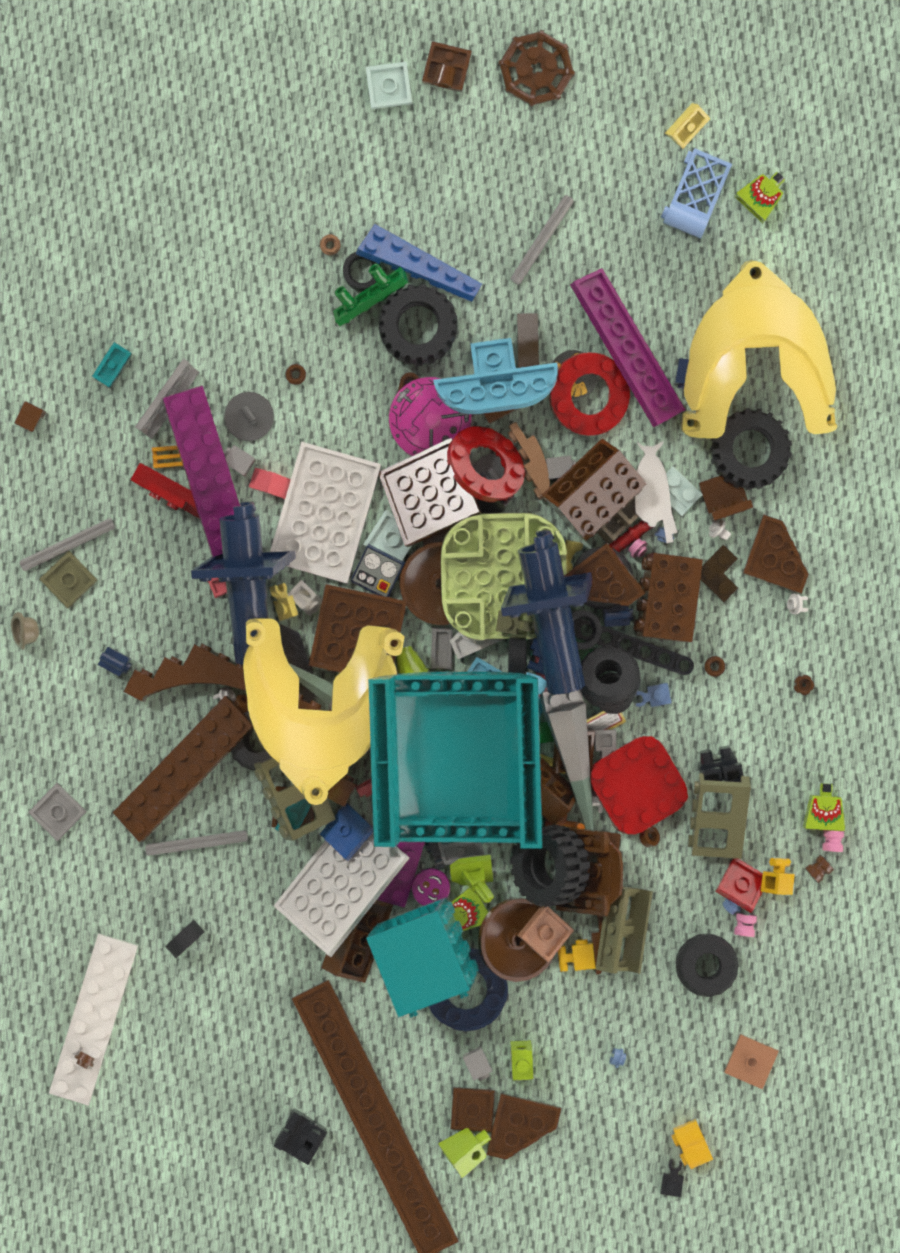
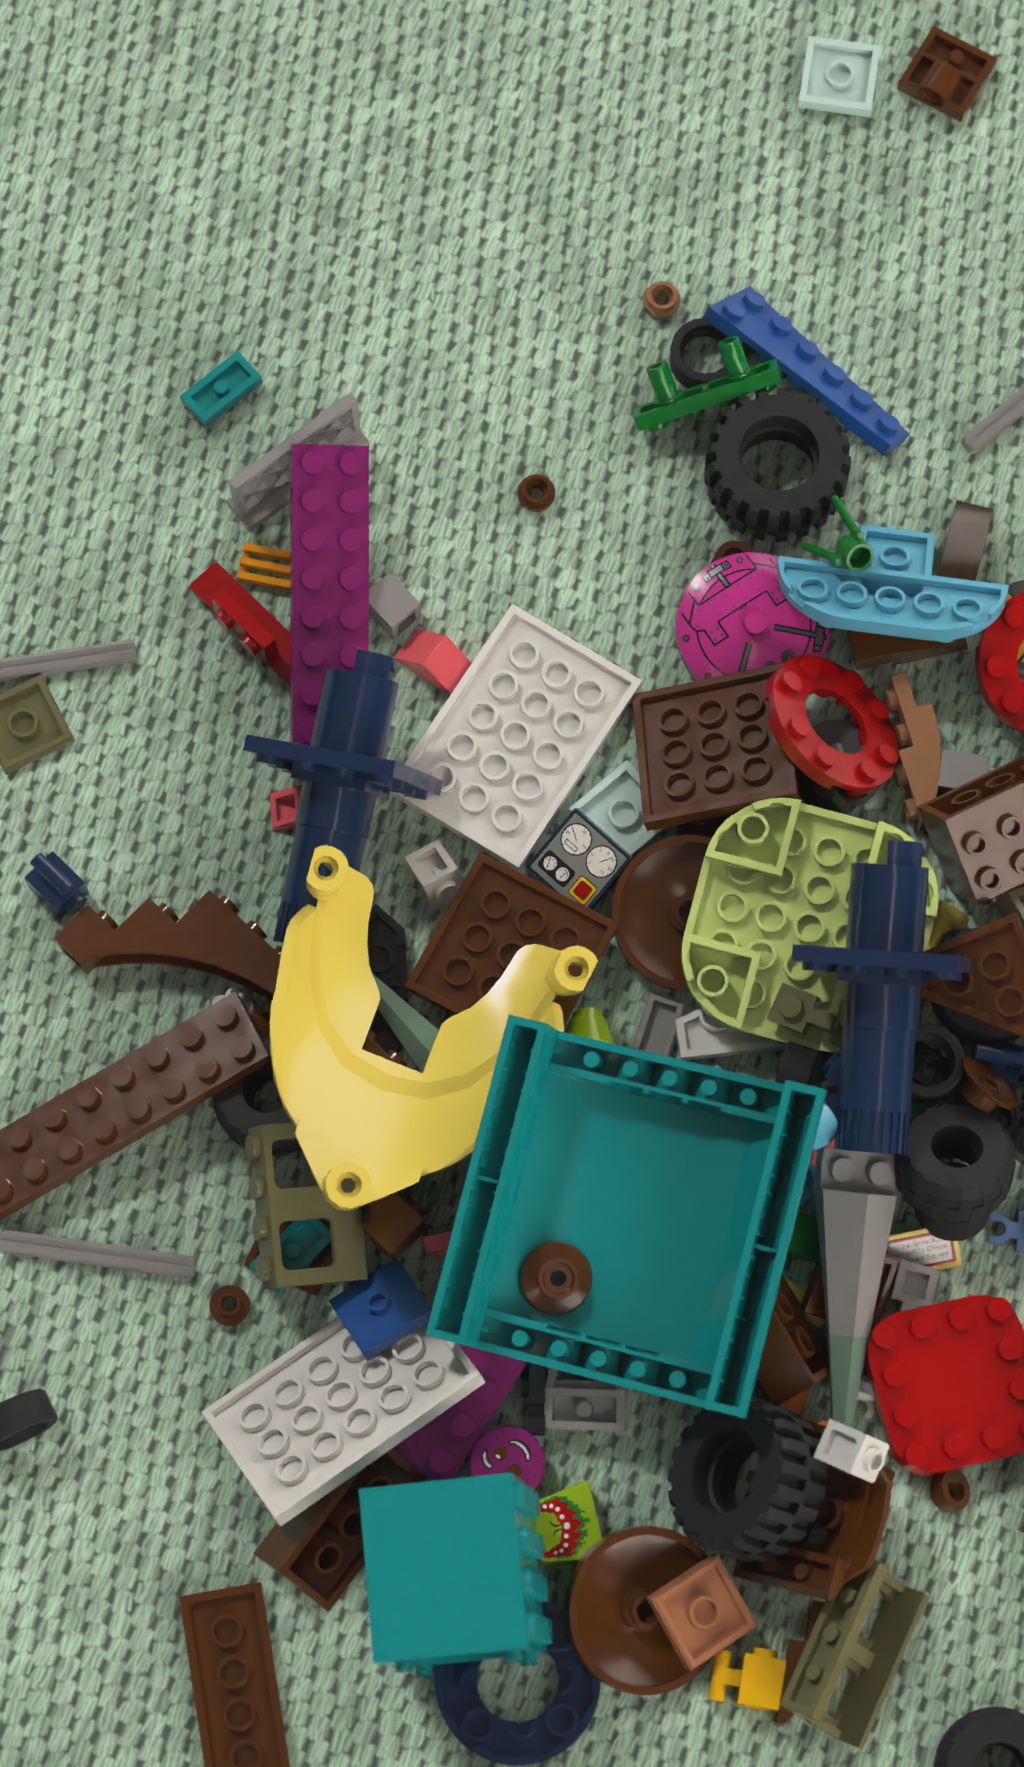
camera: 20 degrees right, 15 degrees down
(29, 416) = (50, 429): reddish brown panel -> none
(249, 416) = (432, 540): dark grey shield -> none
(277, 849) = (233, 1317): none -> reddish brown plate
(285, 604) = (396, 872): light yellow plate -> none
(422, 788) = (536, 1274): none -> reddish brown piece
(470, 367) = (850, 549): none -> green plant
(475, 873) = (598, 1456): lime piece -> none
(597, 843) = (851, 1451): none -> white bracket
(615, 633) = (985, 1087): none -> reddish brown piece

